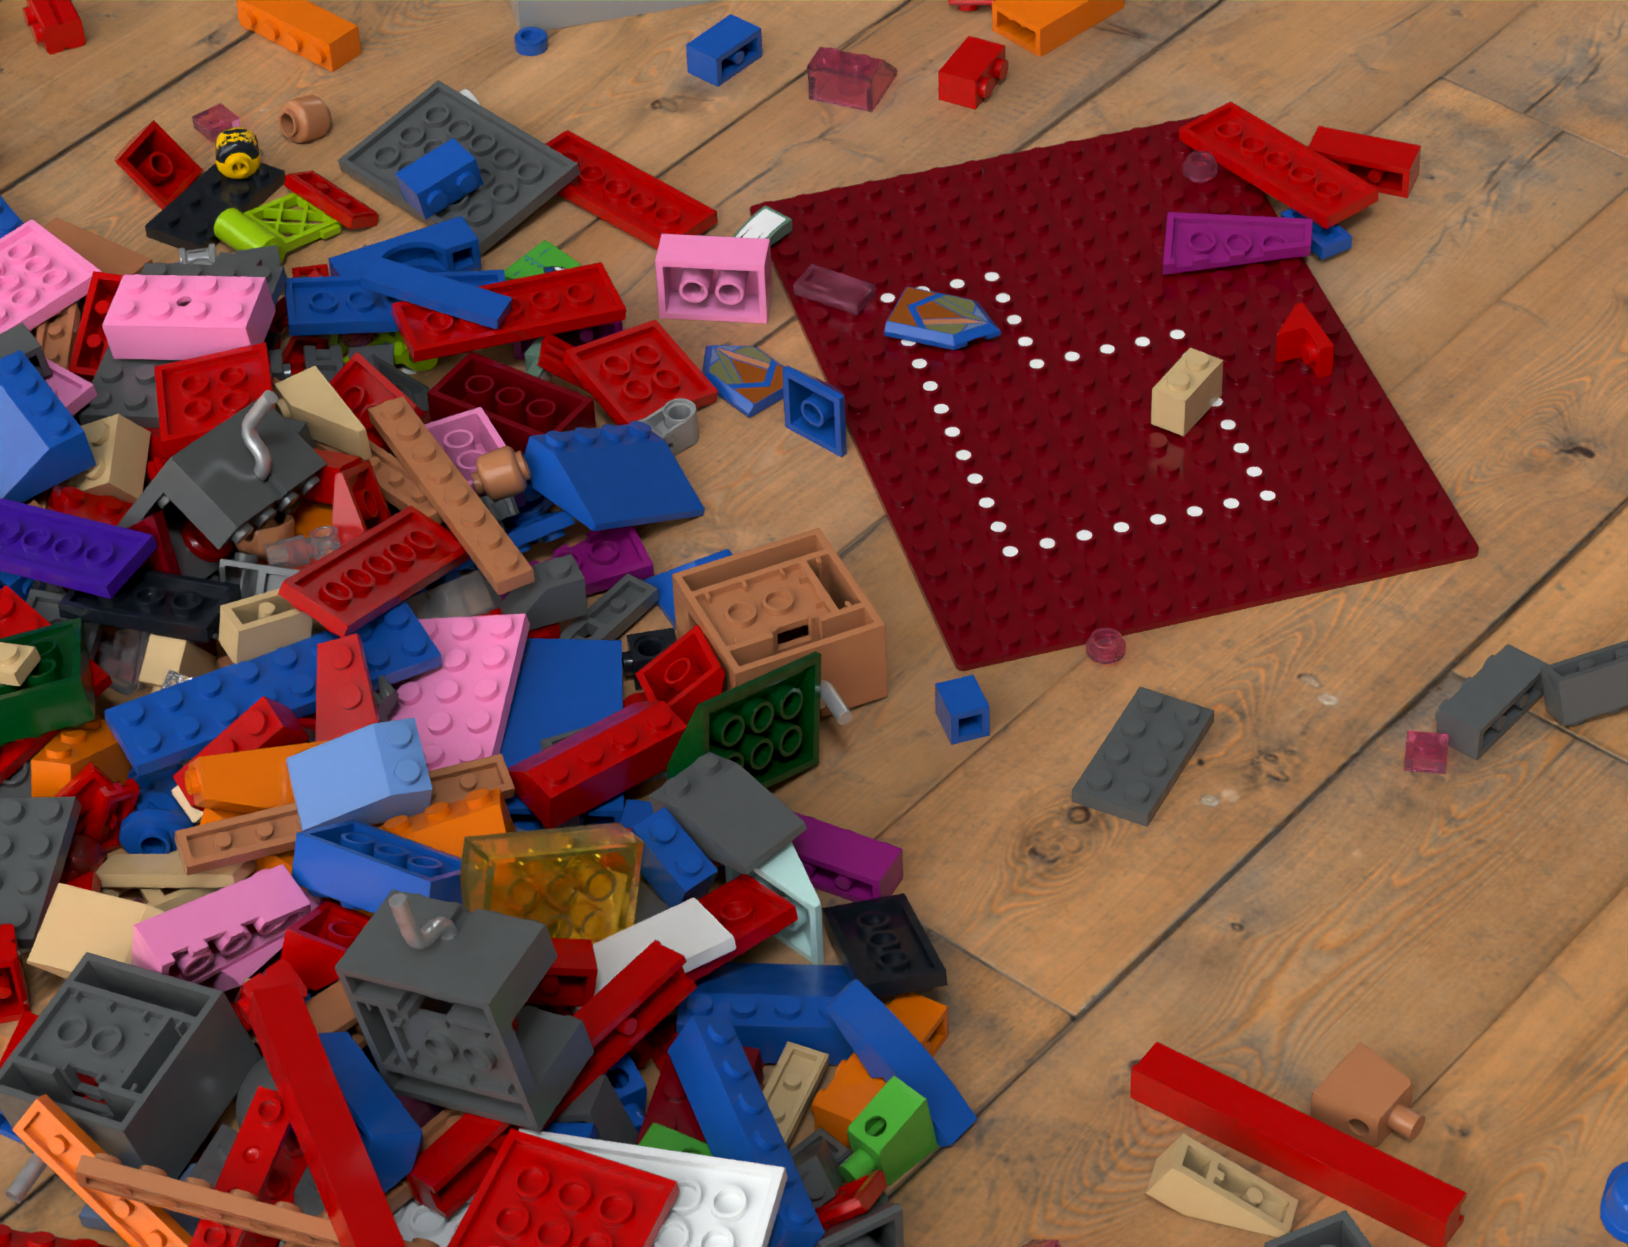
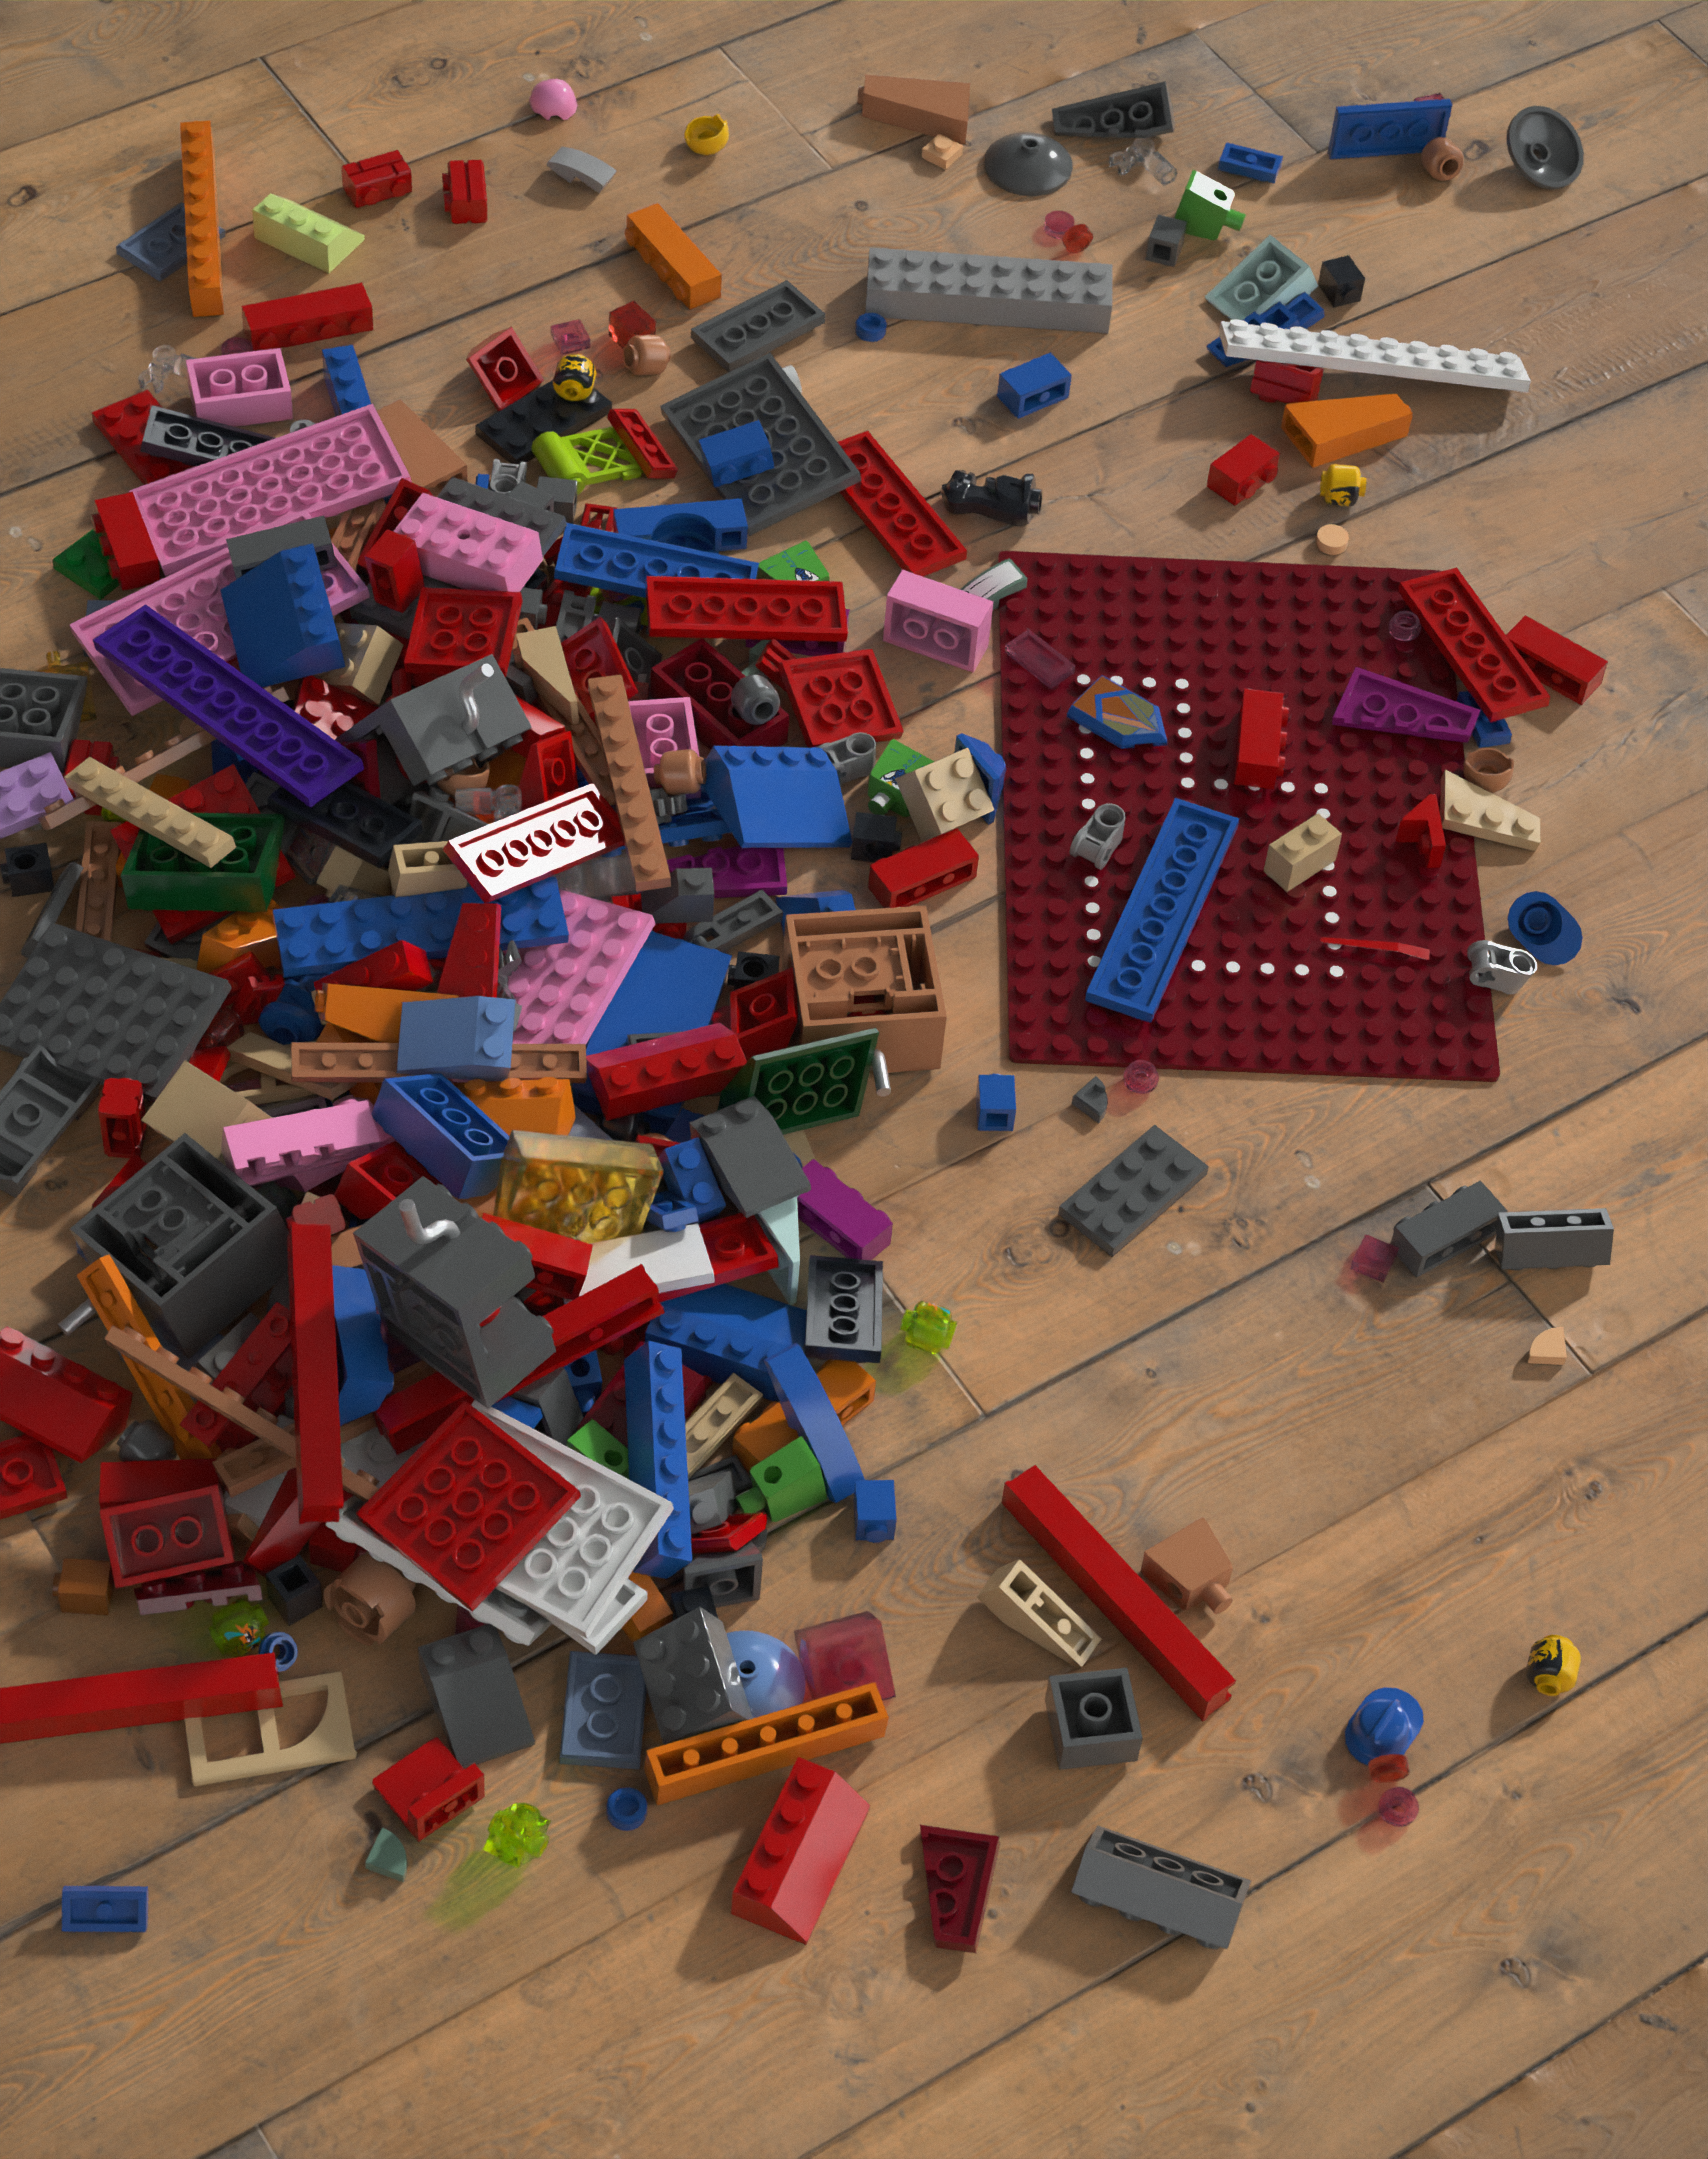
camera: 10 degrees right, 10 degrees up
(119, 356) = (394, 570): none -> red brick
(272, 94) = (629, 322): none -> clear red brick
(412, 66) = (757, 326): none -> dark grey plate
(436, 292) = (687, 576): blue tile -> none
(553, 389) = (755, 699): none -> dark grey head
(662, 894) = (671, 1212): none -> blue plate
(729, 496) = (875, 837): none -> black brick
(735, 156) = (1001, 498): none -> black animal
(737, 435) = (882, 786): none -> bright green torso
(744, 377) = (933, 721): tile -> none
(789, 432) = (944, 794): none -> tan brick
(802, 503) = (923, 870): none -> red brick
(848, 78) = (1132, 446): clear pink slope -> none
(968, 429) = (1100, 835): none -> light grey piece
(981, 943) = (928, 1327): none -> clear neon green head
(997, 1138) = (874, 1510): none -> blue brick
(1062, 682) = (1092, 1099): none -> dark grey tile
(1063, 484) = (1162, 910): none -> blue plate
(1080, 60) = (1342, 485): none -> yellow head
(1089, 113) = (1332, 539): none -> light nougat tile
(1097, 302) = (1260, 739): none -> red brick
(1313, 457) = (1381, 945): none -> red sticker
(1342, 274) = (1488, 769): none -> nougat hair
(1359, 315) = (1484, 815): none -> tan wing
(1436, 444) = (1502, 968): none -> light grey piece
(1466, 399) = (1545, 928): none -> blue piece

